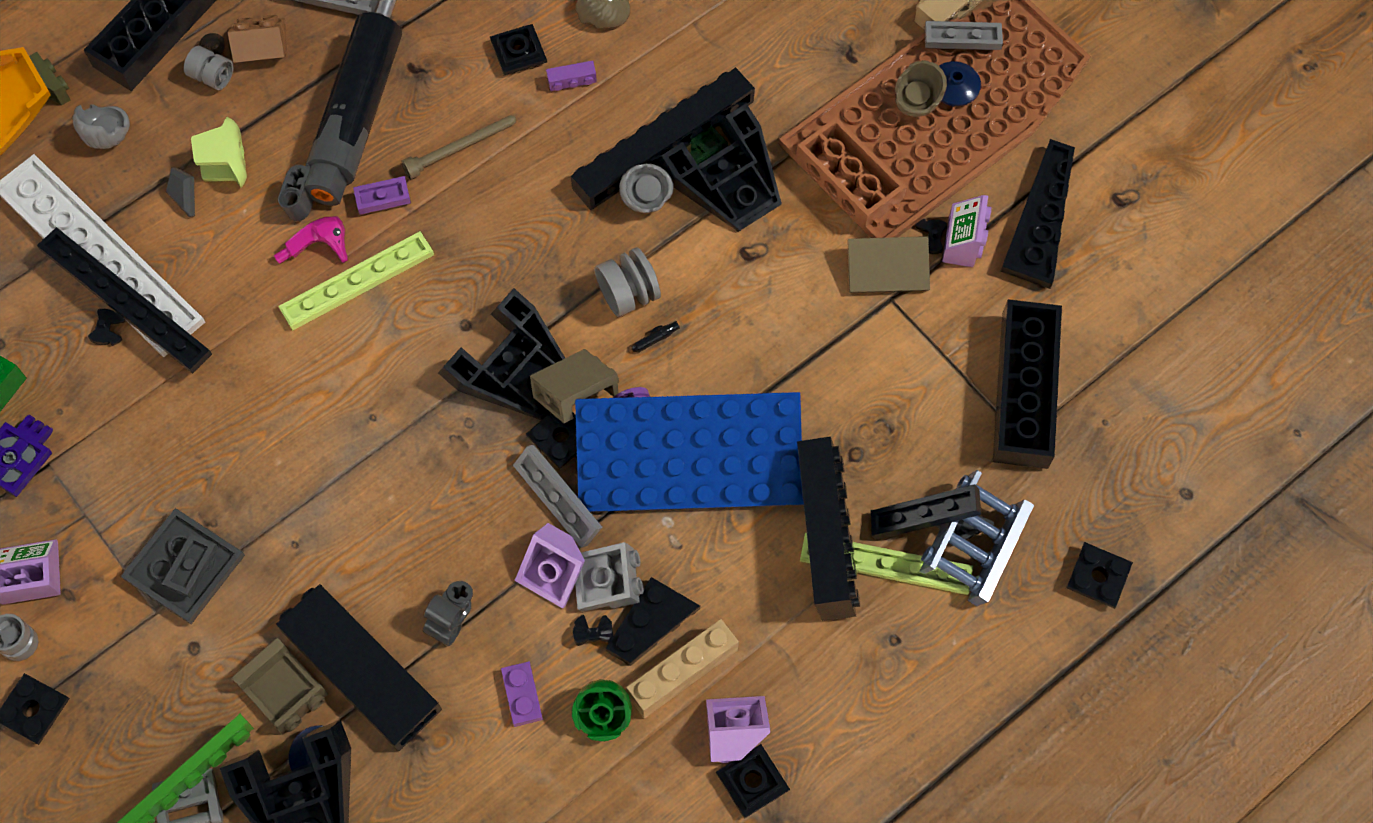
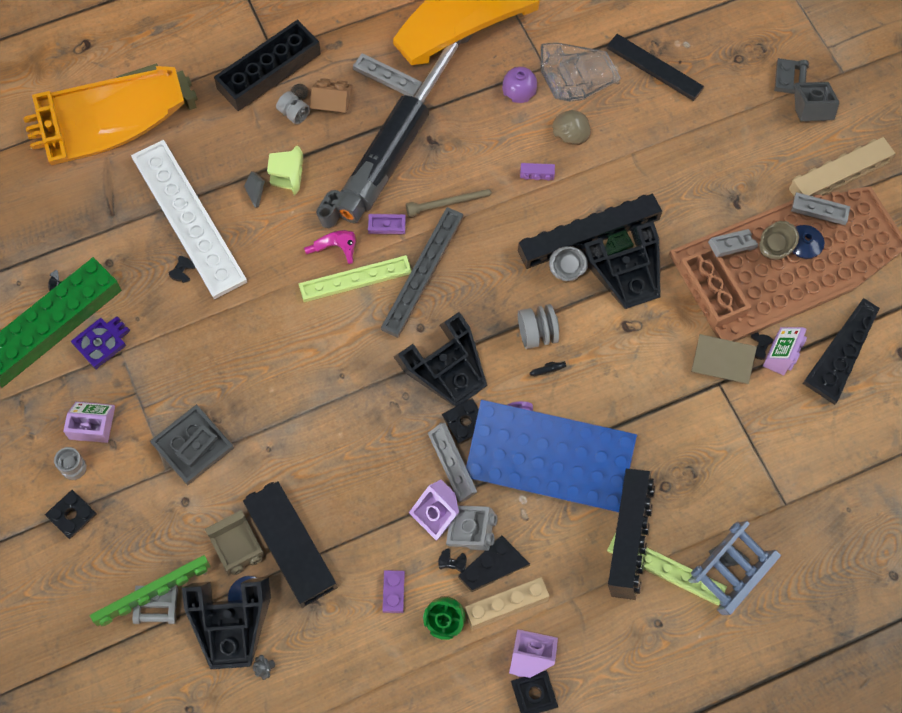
camera: 15 degrees right, 0 degrees up
(101, 125) = (212, 131): light grey piece -> none
(124, 300) = (198, 255): black plate -> none
(447, 612) = (358, 522): dark grey piece -> none
(448, 249) = (422, 272): none -> dark grey plate
(517, 60) = (501, 151): black piece -> none
(571, 380) = (482, 385): dark tan panel -> none
(860, 107) = (732, 243): none -> light grey plate
(925, 512) = (703, 540): black plate -> none
(1027, 384) = (799, 469): black brick -> none
(1112, 566) = (826, 614): black piece -> none

